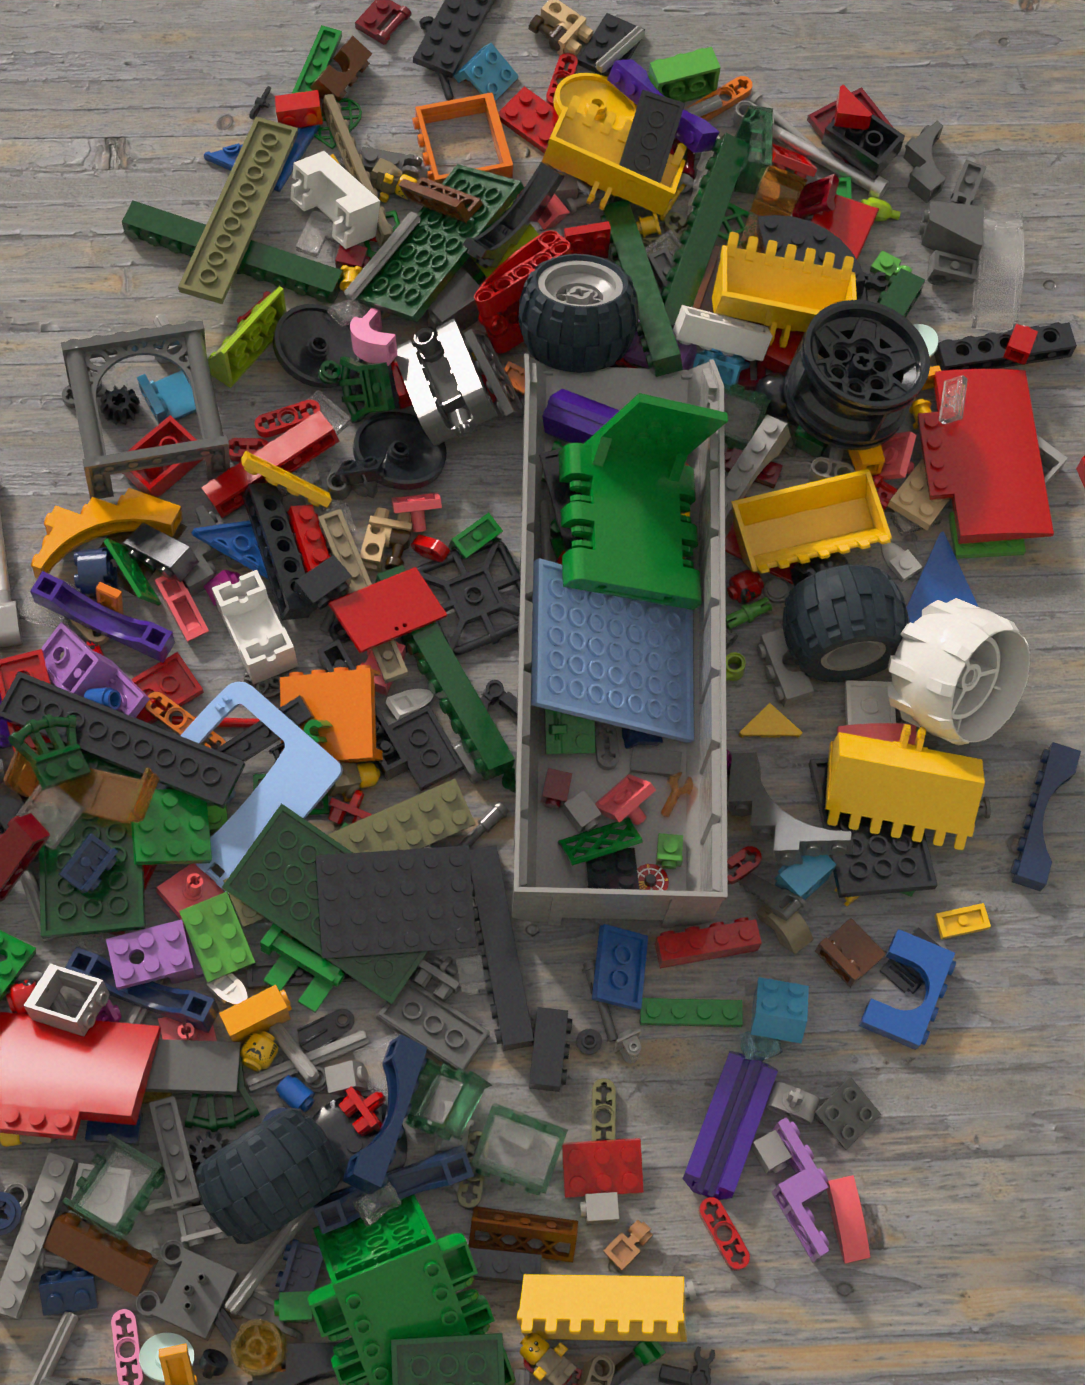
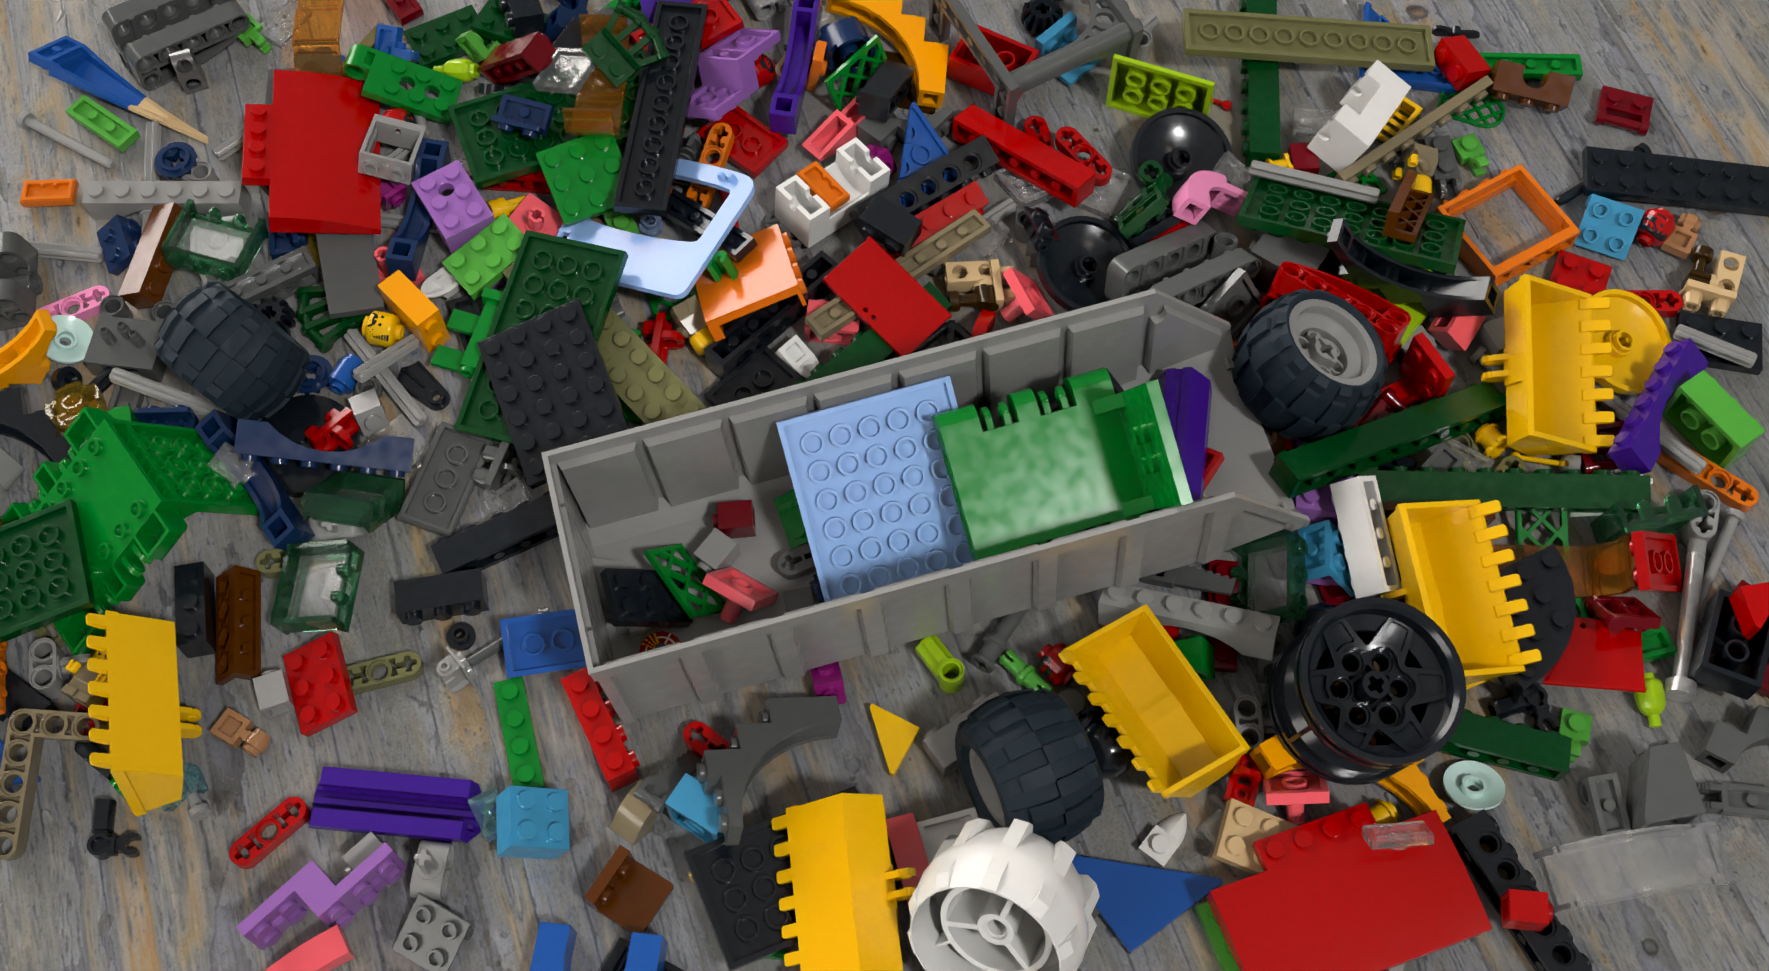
camera: 80 degrees right, 5 degrees down
(16, 901) = (489, 88): none -> black tile
(104, 696) = (704, 82): blue brick -> none
(159, 913) = (500, 205): none -> yellow piece
(250, 629) = (824, 186): none -> orange plate
(293, 484) = (1003, 165): yellow plate -> none
(381, 138) = (1471, 152): none -> bright green plate
(503, 41) = (1655, 227): none -> red head
(514, 31) = (1684, 236): none -> medium nougat plate
(651, 135) = (1595, 396): black plate -> none
(768, 484) = (1199, 655): none -> green brick

